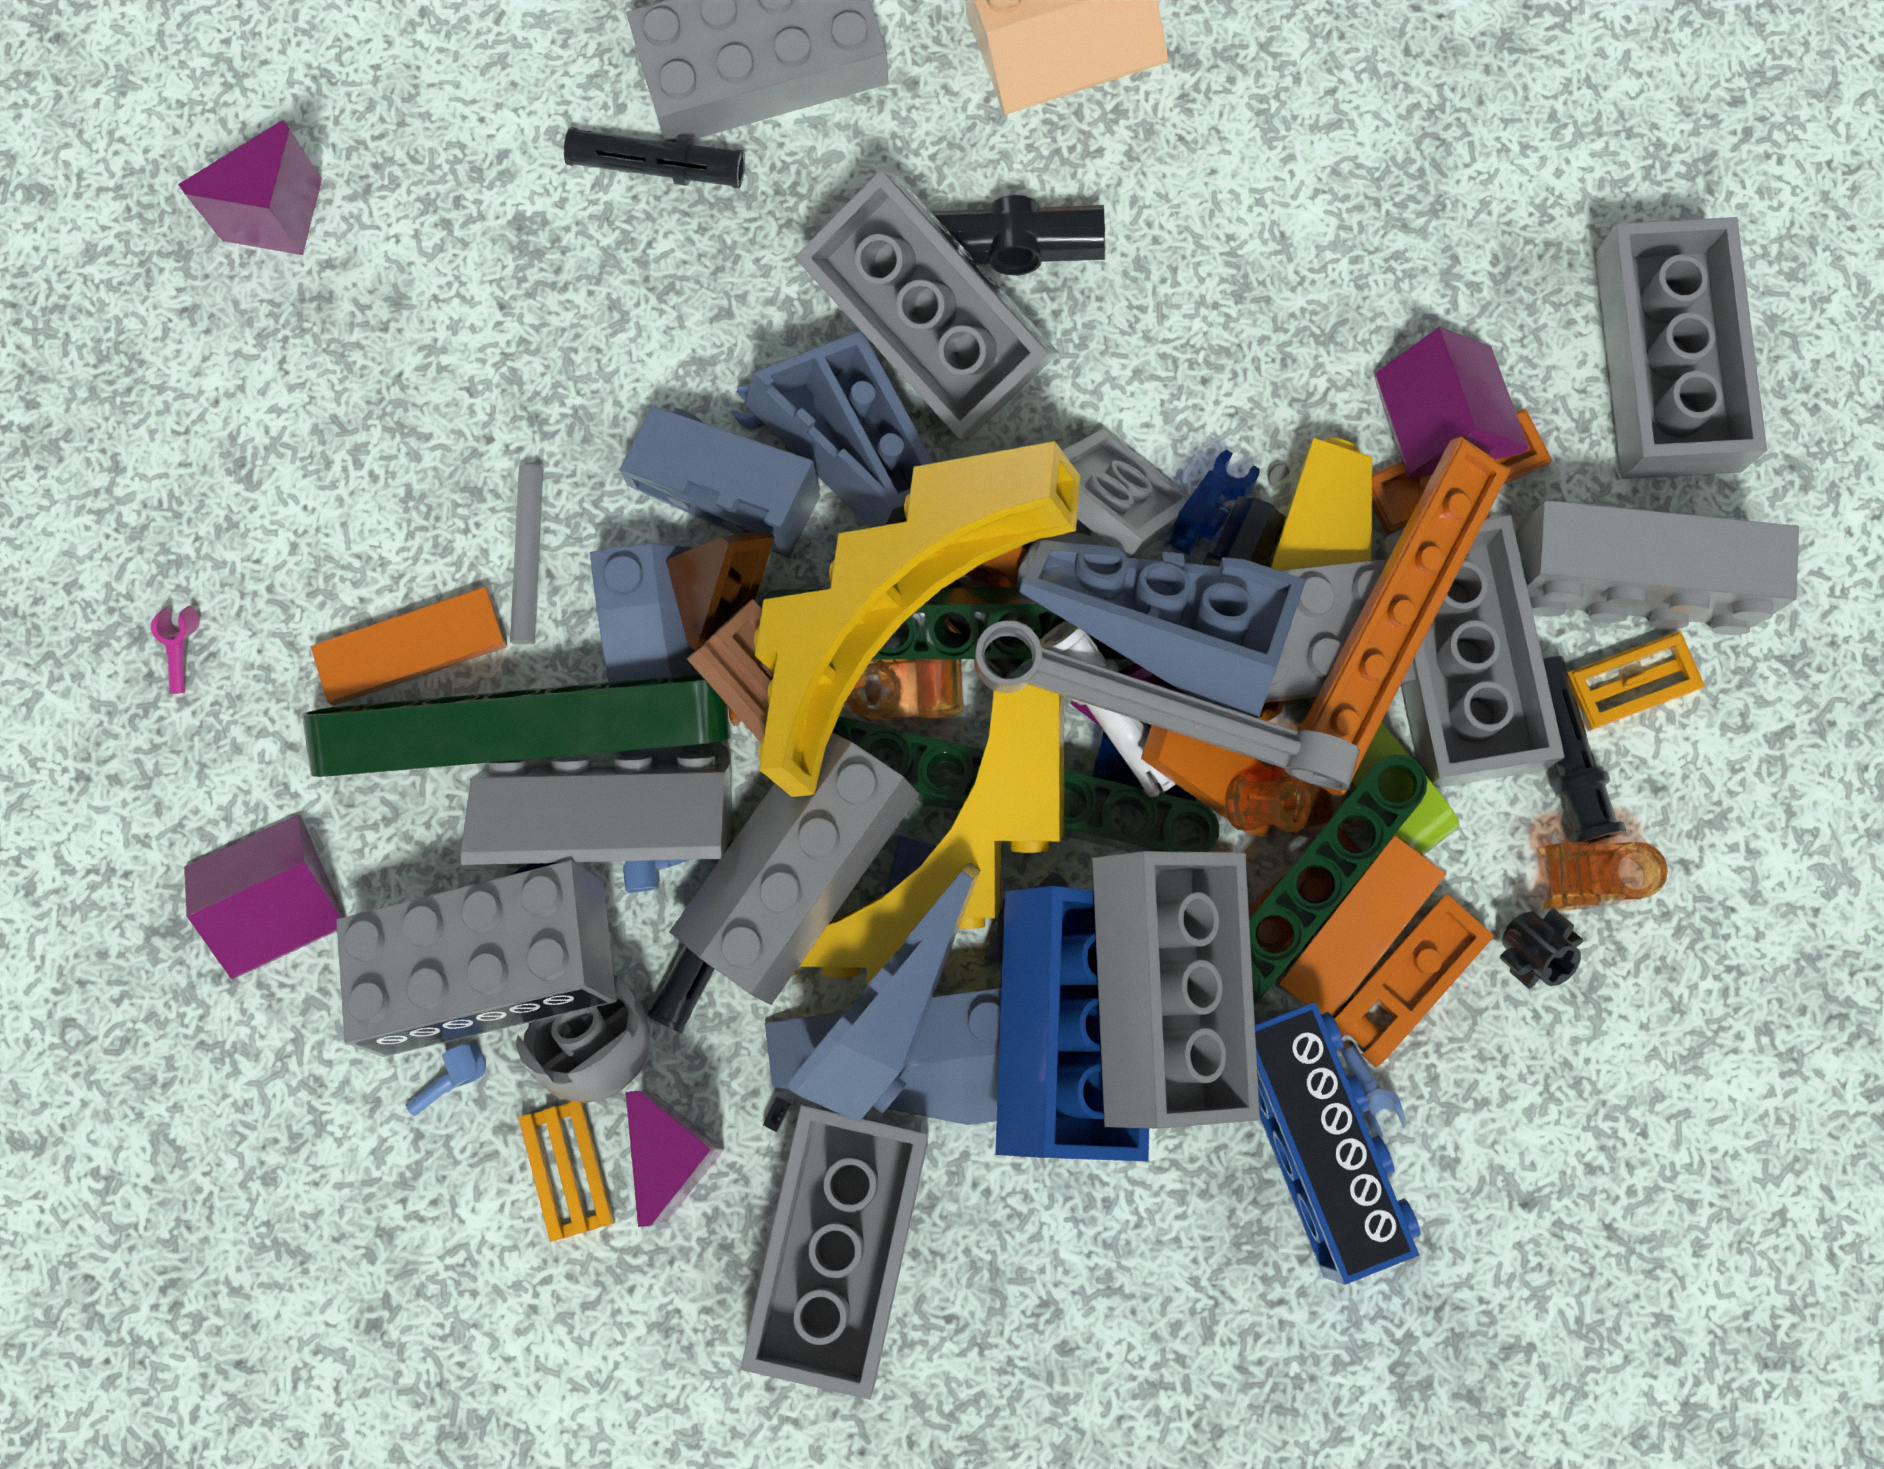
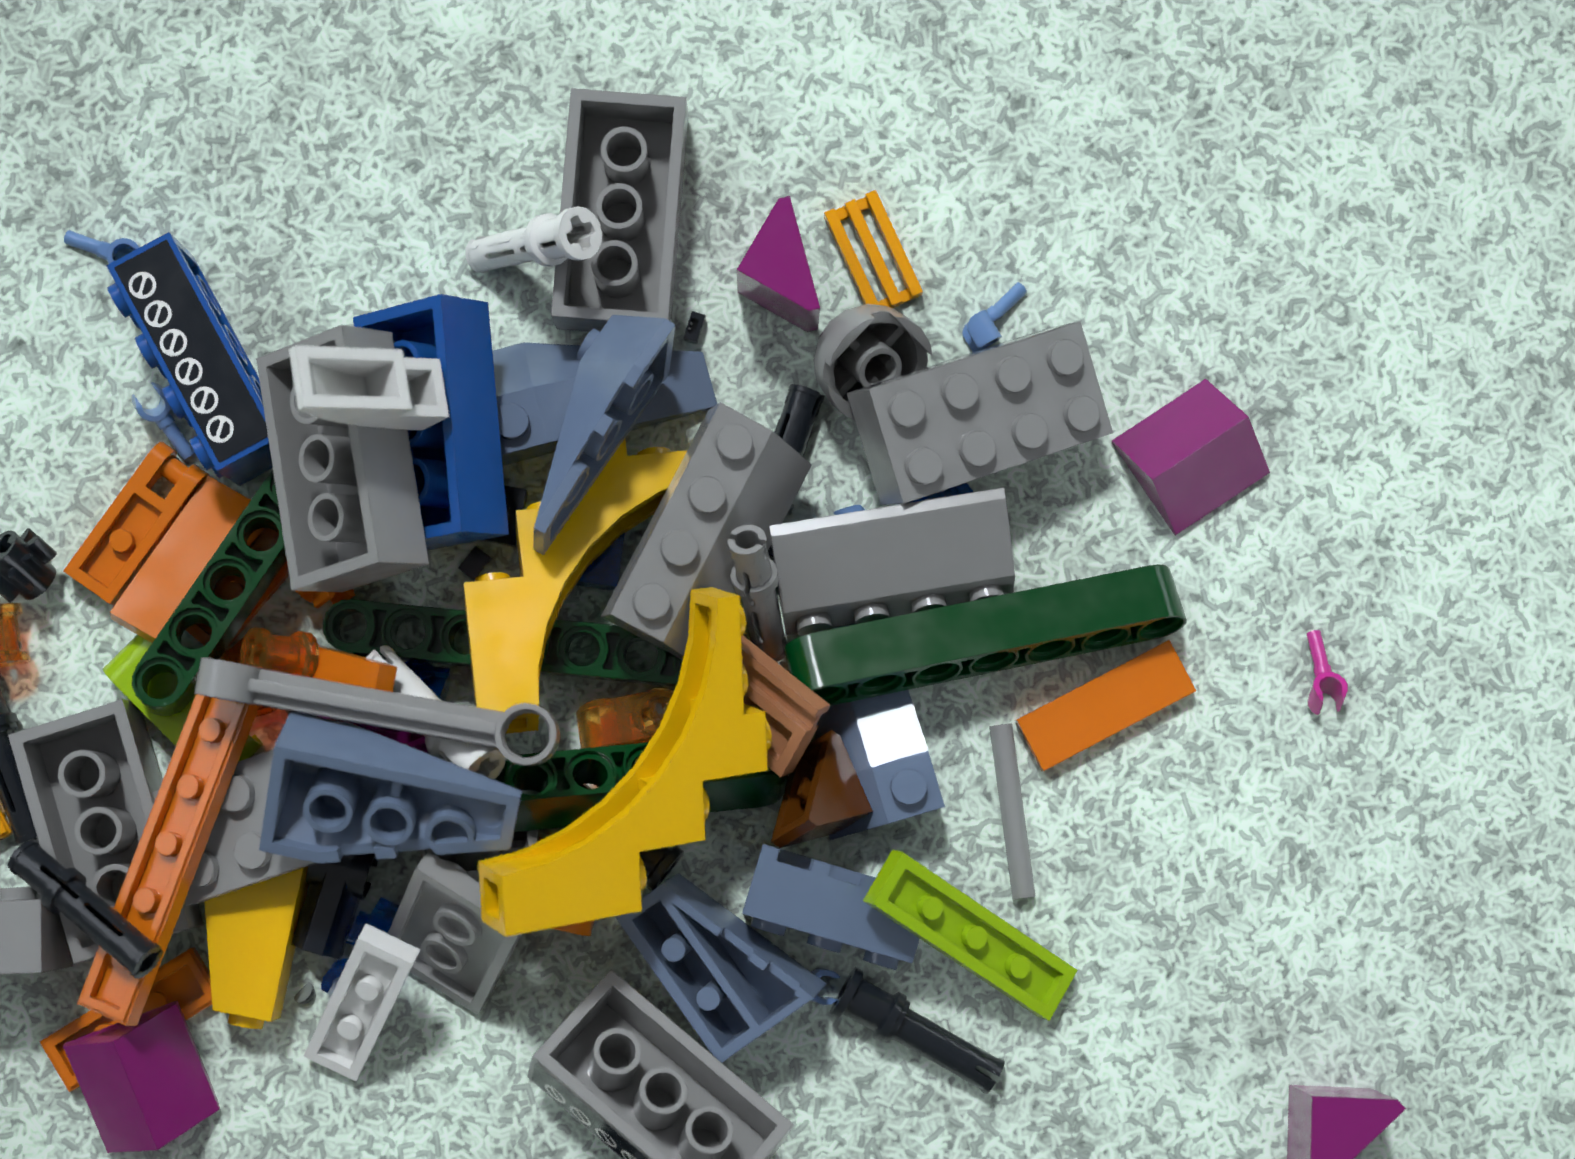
camera: 165 degrees right, 5 degrees up
(589, 424) = (970, 934): none -> lime plate
(683, 364) = (892, 1019): none -> black pin
(745, 799) = (755, 580): none -> light grey pin
(921, 1217) = (544, 240): none -> white pin
(1132, 1044) = (368, 387): none -> white slope
(1217, 442) = (361, 1002): none -> white plate
(1425, 1299) = (100, 248): none -> medium blue hand
(1541, 612) = (67, 893): none -> black pin

